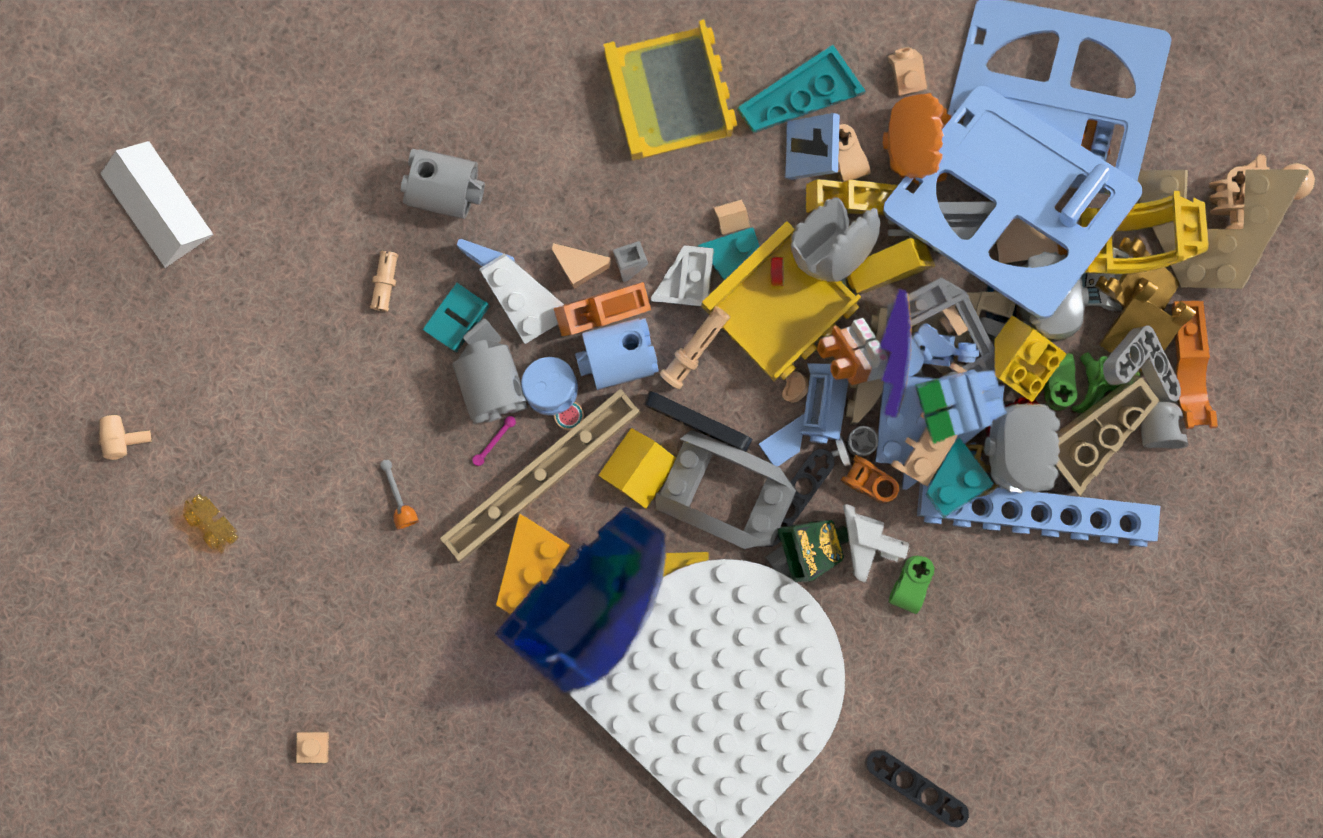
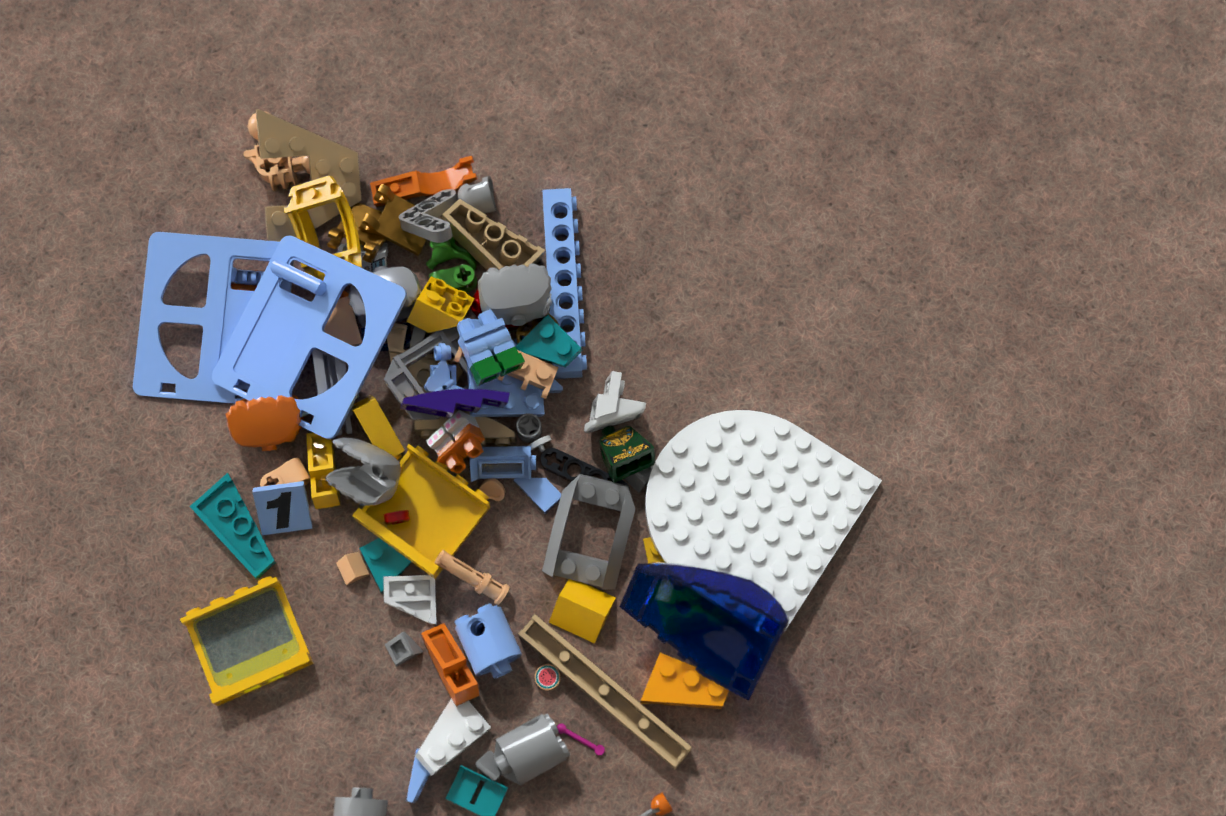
camera: 100 degrees left, 10 degrees down
(549, 386) = (524, 697): light blue head -> none
(579, 265) = (414, 692): light nougat slope -> none
(697, 421) = (534, 566): black beam -> none
(869, 480) = (560, 420): orange piece -> none
(908, 71) = (205, 441): light nougat bracket -> none
(911, 590) = (641, 370): bright green piece -> none
(915, 790) = (798, 341): black beam -> none
(952, 321) = (419, 367): light nougat plate -> none

